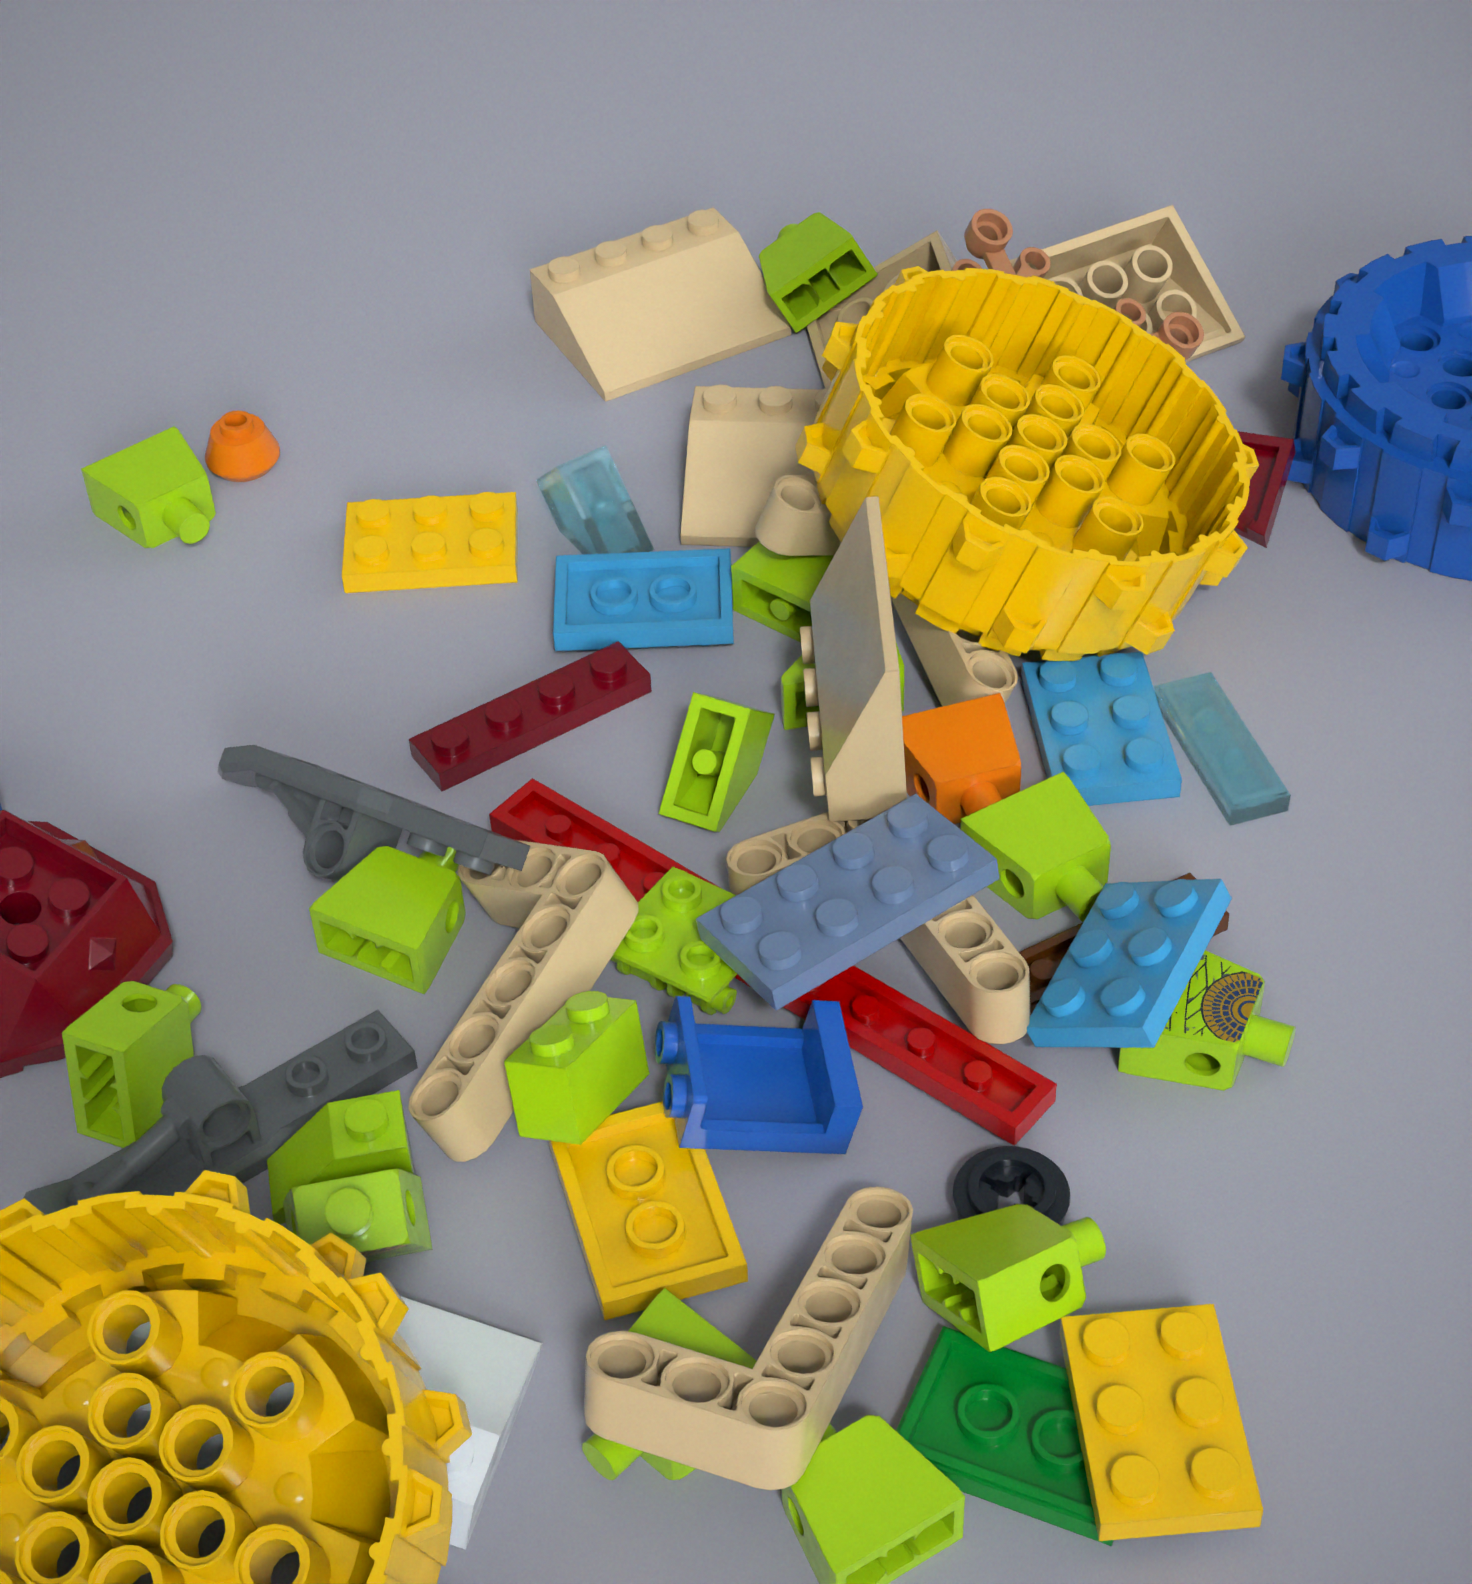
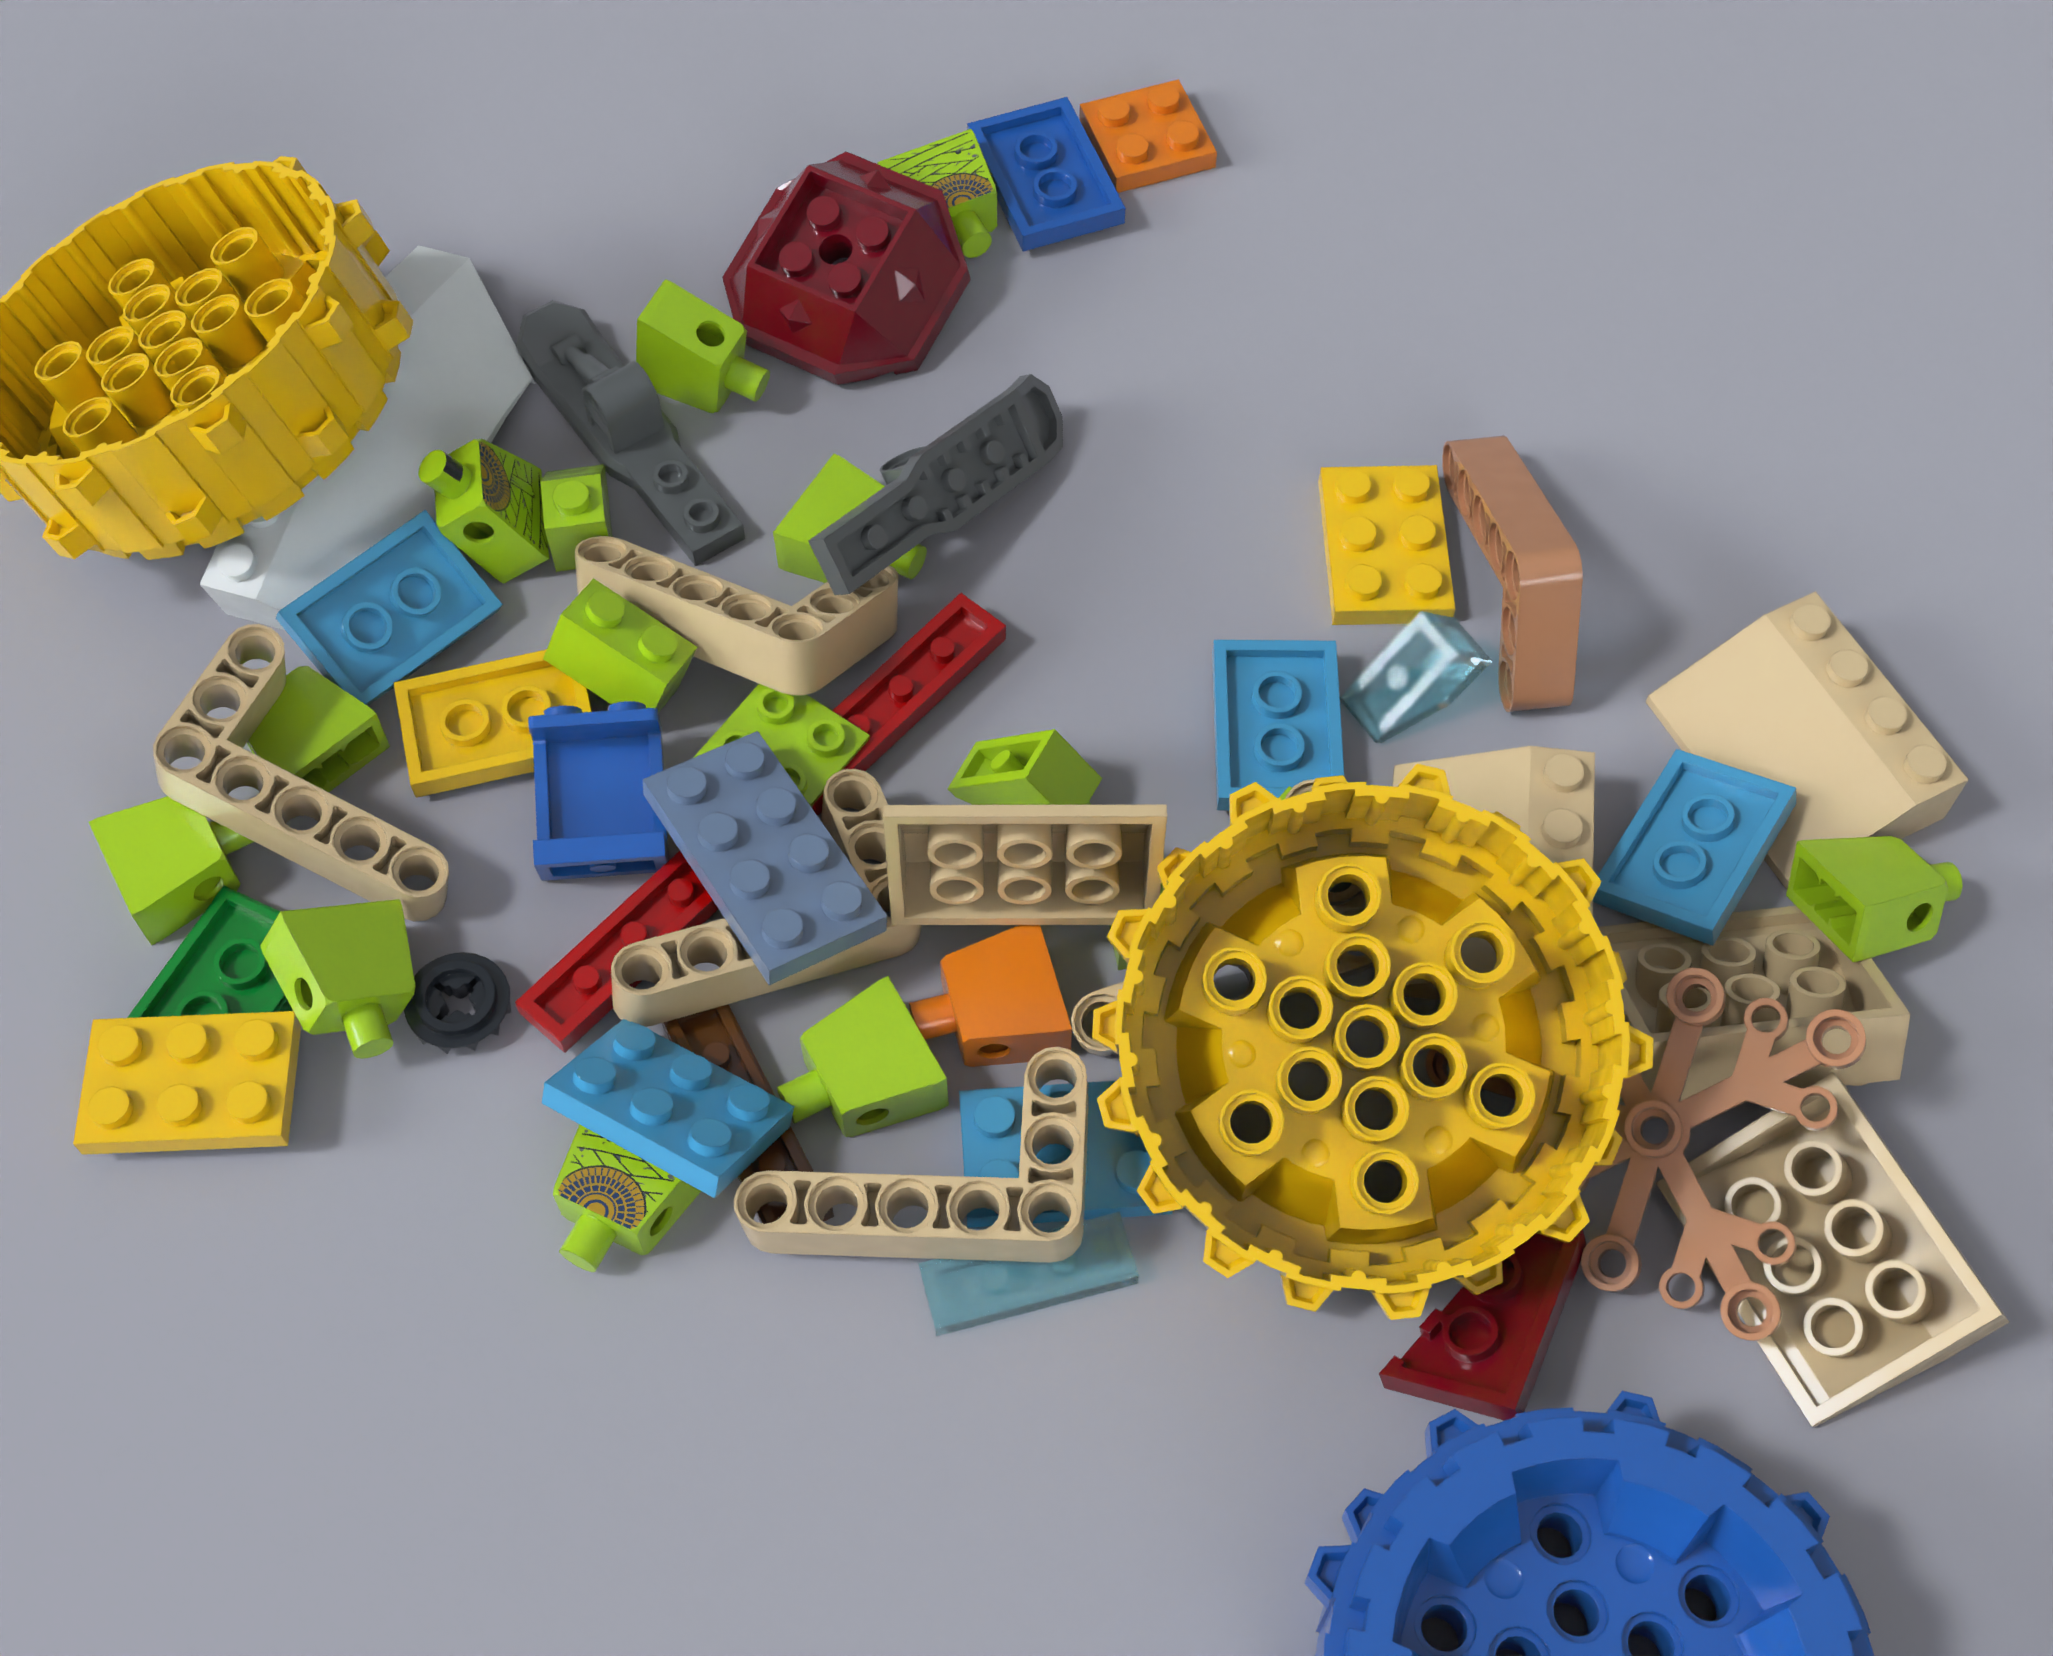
camera: 90 degrees right, 15 degrees up
(152, 491) = (1449, 309): lime torso -> none
(241, 447) = (1528, 374): orange cone -> none
(470, 413) = (1532, 562): none -> nougat beam
(500, 1310) = (389, 610): none -> dark azure plate
(529, 716) = (1120, 637): dark red plate -> none
(753, 347) = (1694, 846): none -> dark azure plate
(1191, 705) = (944, 1197): none -> tan beam

